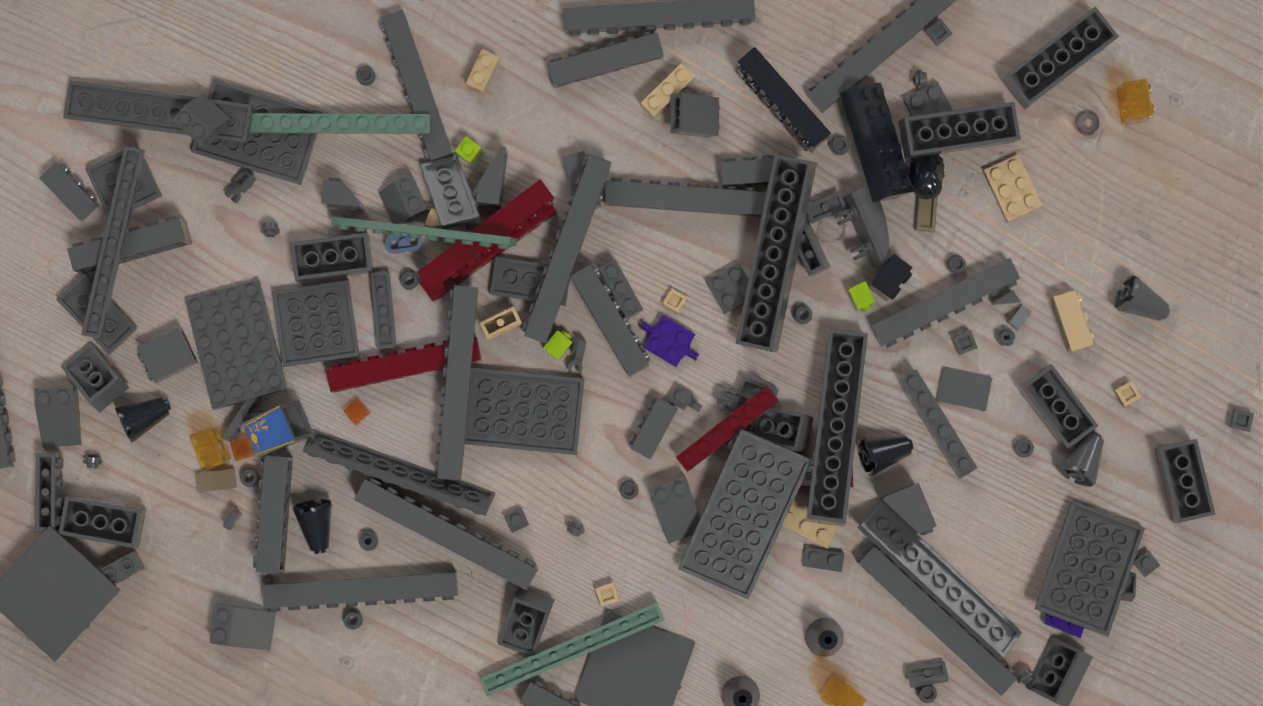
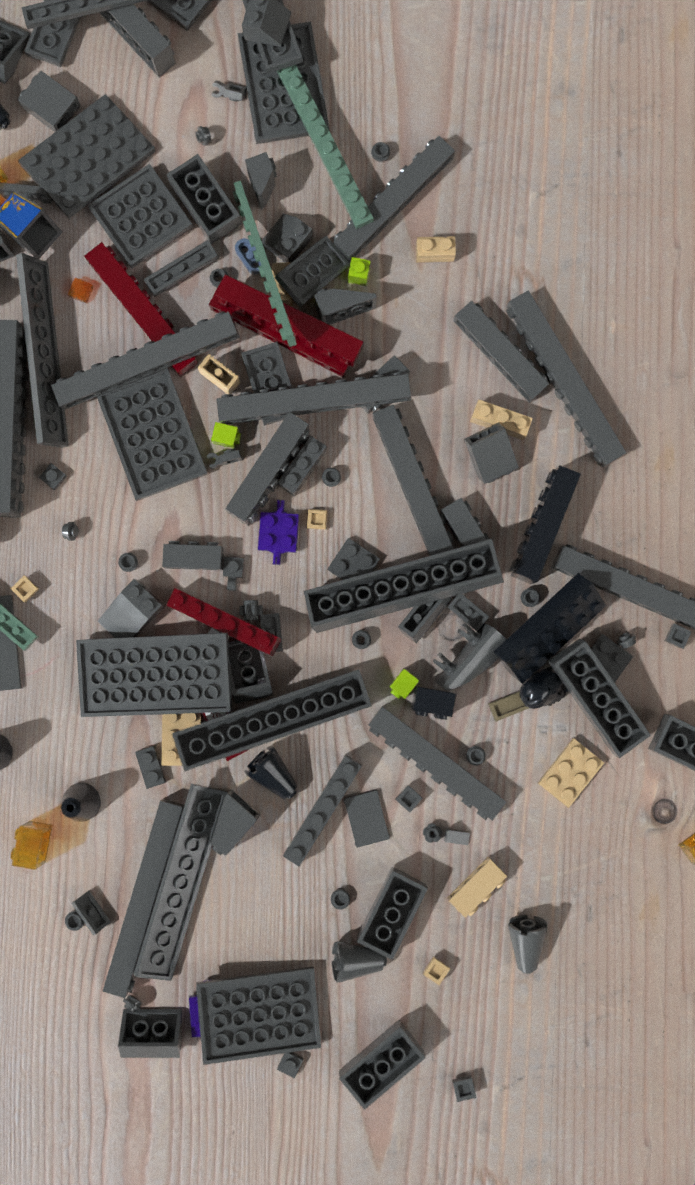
camera: 60 degrees right, 0 degrees up
(642, 269) = (331, 477): none -> dark grey plate
(1008, 298) = (469, 818): dark grey piece -> none
(1130, 589) = (257, 1062): dark grey piece -> none

